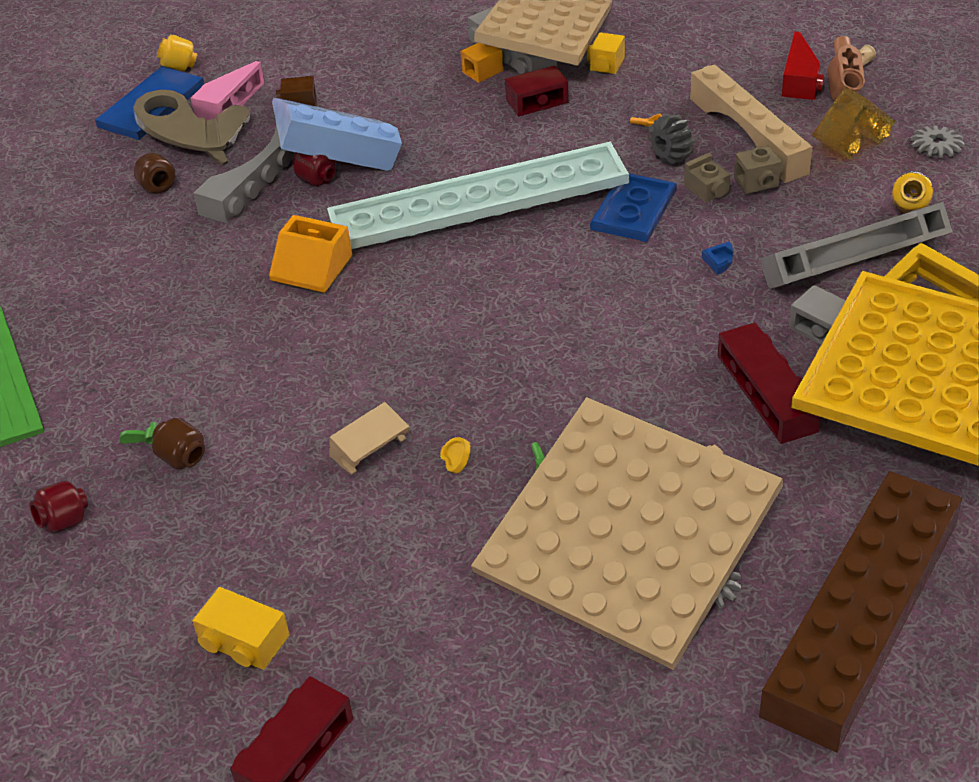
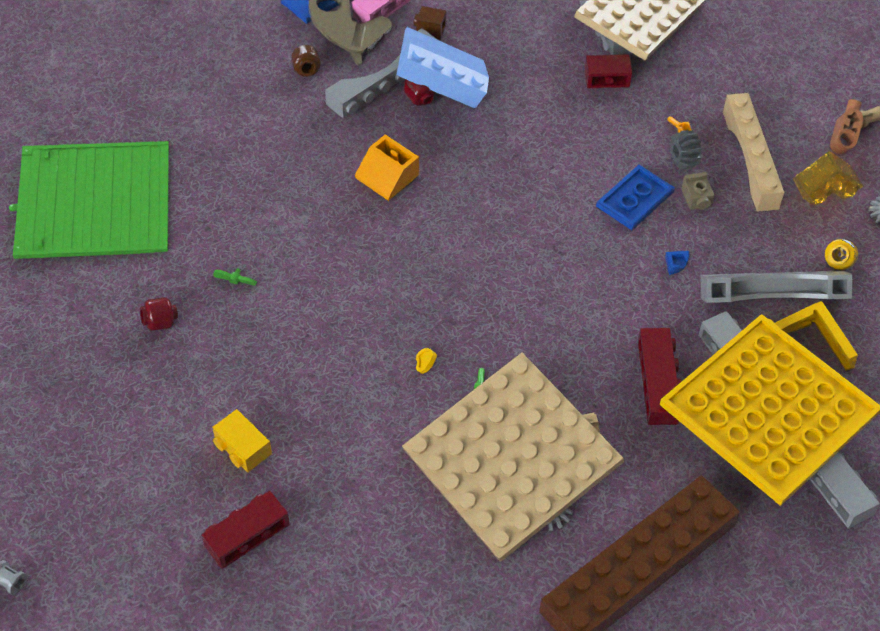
camera: 15 degrees right, 10 degrees up
(178, 443) = (248, 292): reddish brown head -> none
(366, 436) = (371, 328): tan hinge -> none
(480, 195) = (527, 154): light aqua plate -> none
(481, 61) = (577, 32): light orange brick -> none
(606, 53) = (676, 51): yellow brick -> none
(757, 169) = (737, 196): dark tan brick -> none
(801, 71) = (815, 117): red slope -> none

